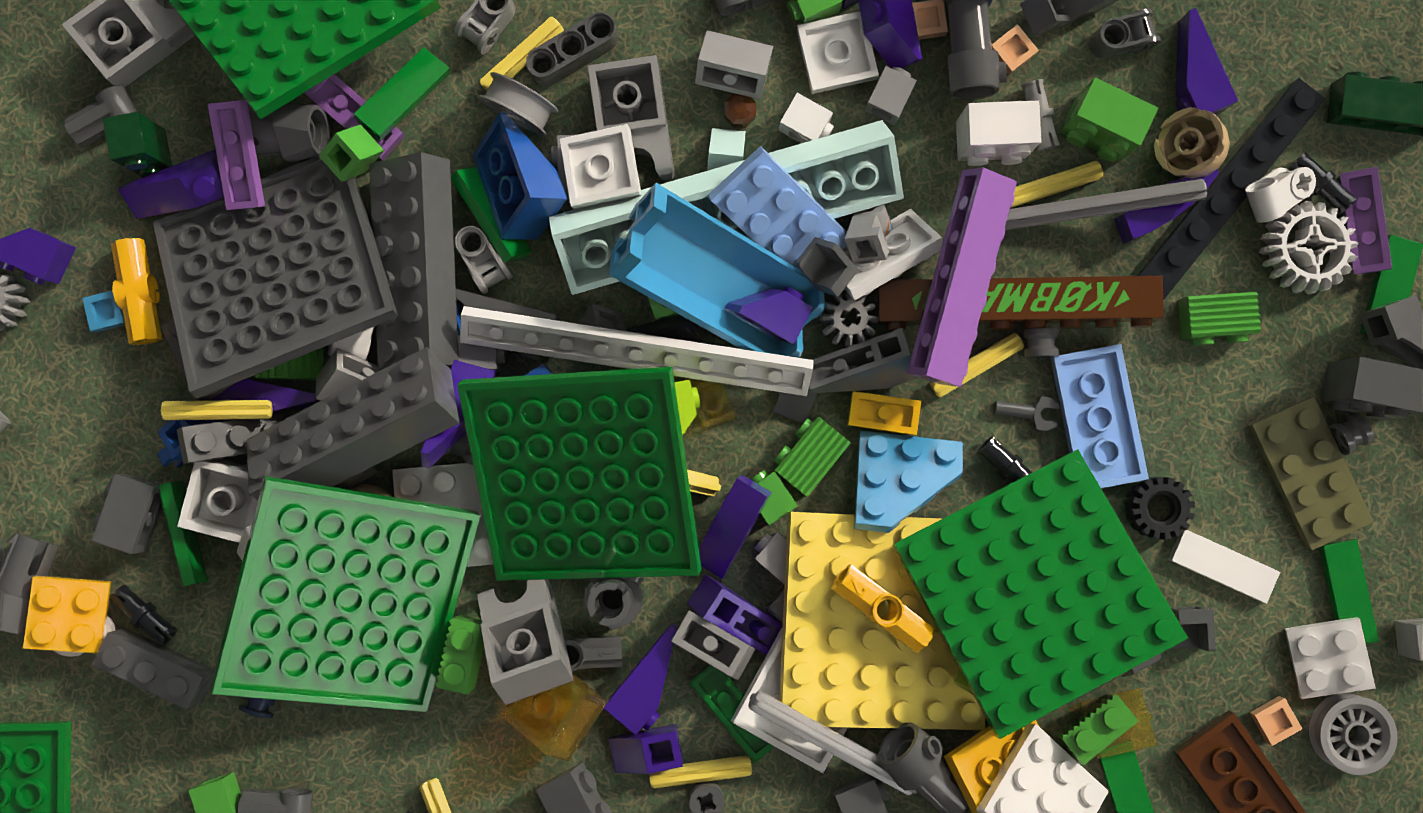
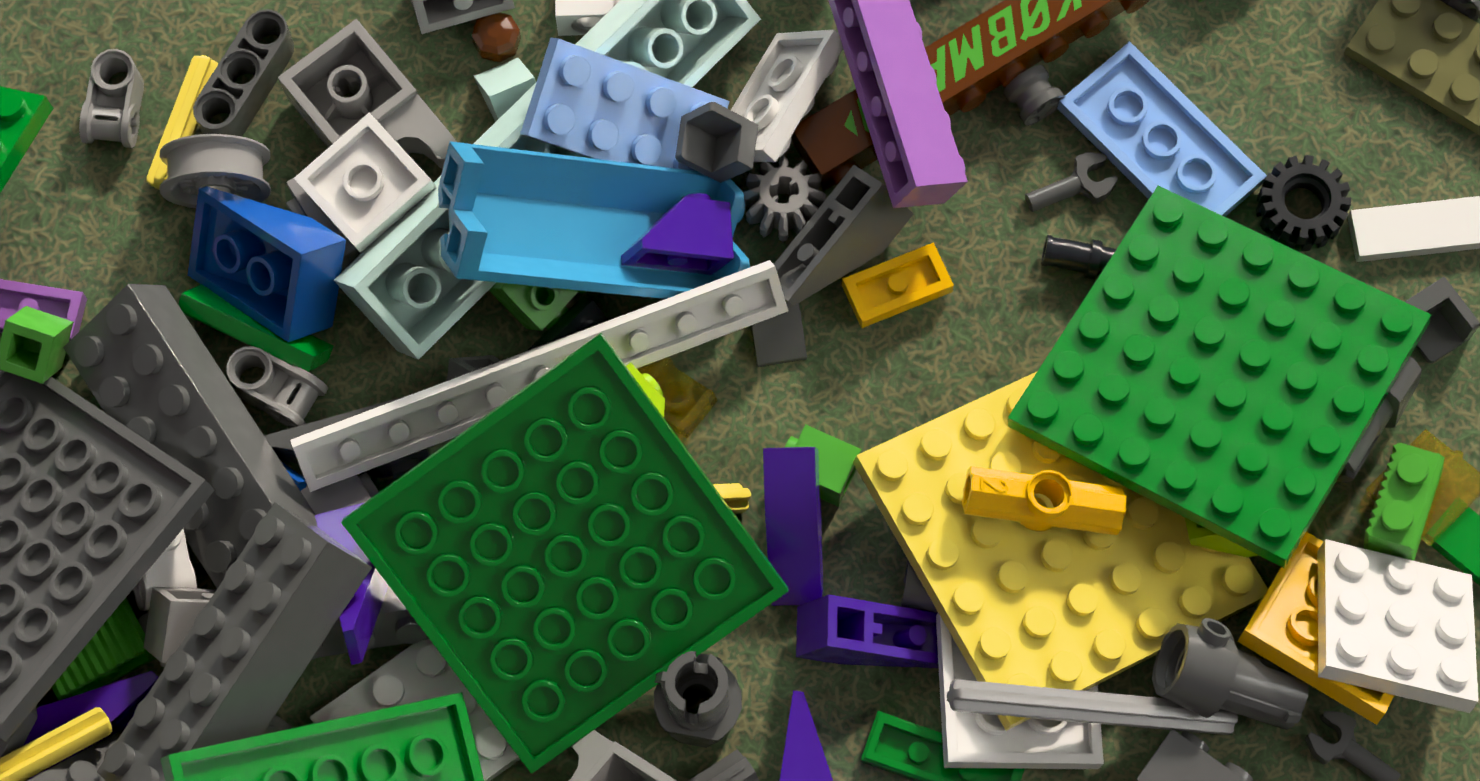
camera: 30 degrees left, 15 degrees down
(401, 93) = (55, 246): green tile -> none
(713, 645) = (862, 682): light grey brick -> none
(772, 554) = (870, 535): light grey brick -> none
(811, 455) = (840, 384): bright green brick -> none
(869, 231) = (745, 82): light grey leg -> none
(900, 476) = (965, 343): dark azure plate -> none
(984, 361) = (977, 163): light yellow axle -> none

